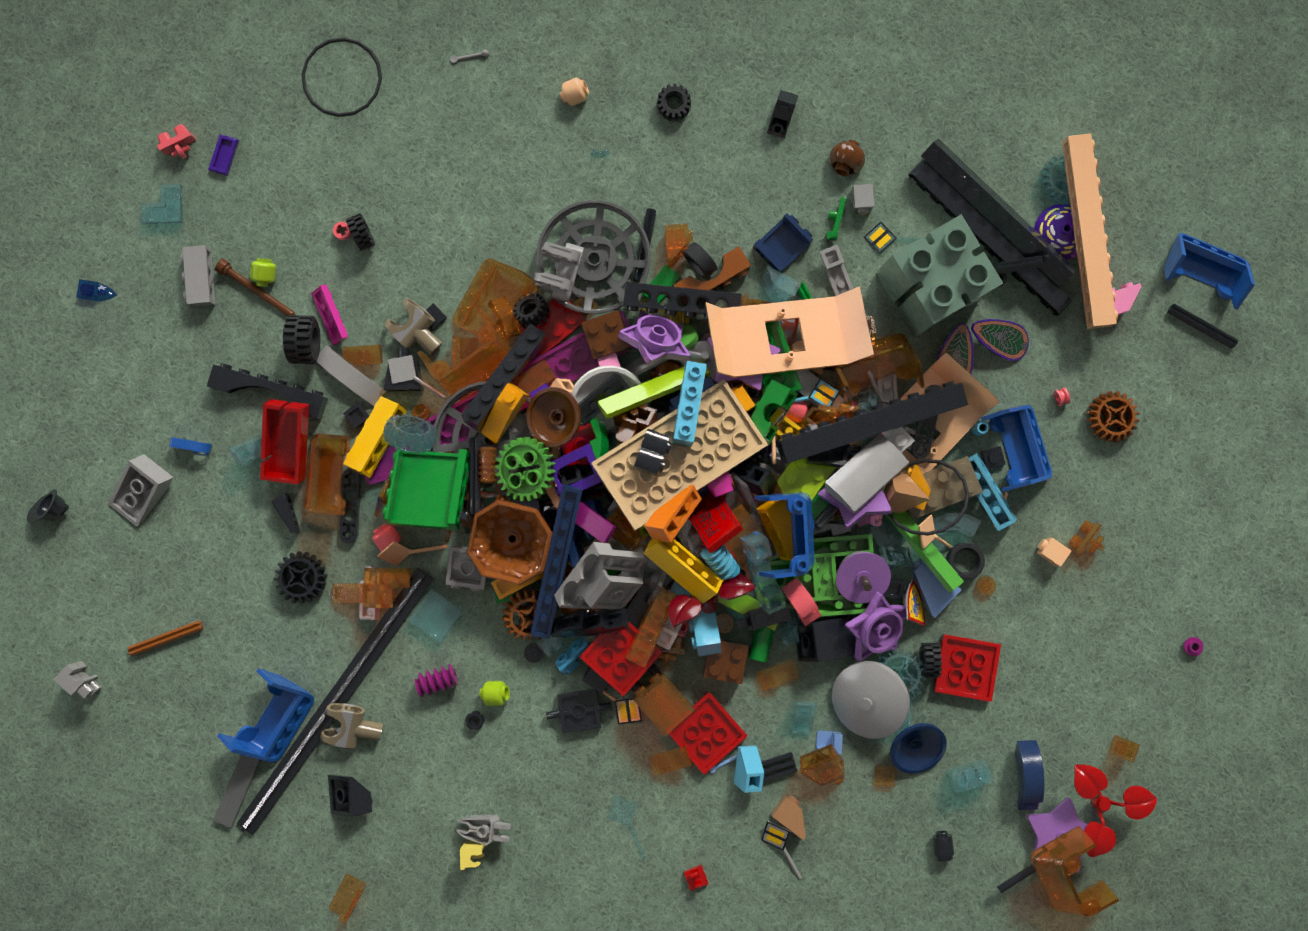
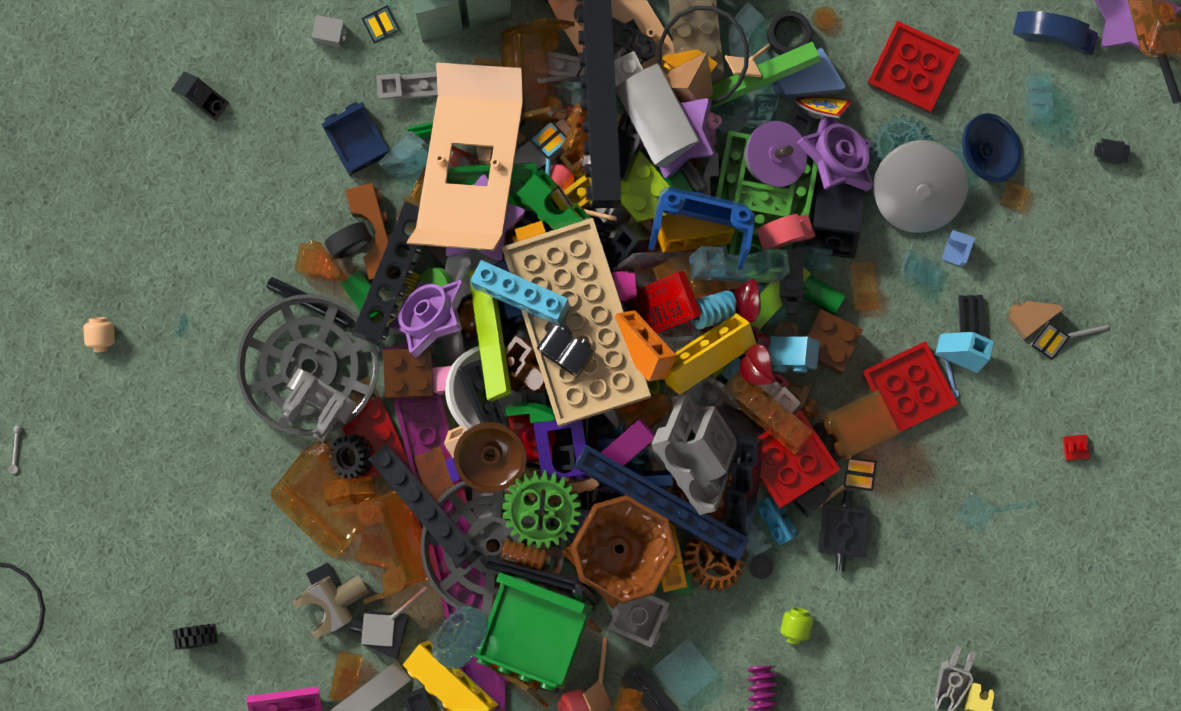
camera: 70 degrees left, 5 degrees down
(336, 229) = (179, 656): coral bush -> none
(421, 411) = (433, 623): clear orange plate -> none
(475, 725) = (816, 658): black plate -> none
(504, 412) = (467, 517): light orange slope -> none
(669, 760) = (931, 439): clear orange tile -> none
(678, 92) = (143, 206): black tyre -> none
(823, 766) = (983, 262): clear orange torso -> none
(833, 235) = (341, 67): green piece -> none
(847, 156) = (275, 34): reddish brown plant -> none
(931, 659) = (892, 103): black tyre -> none

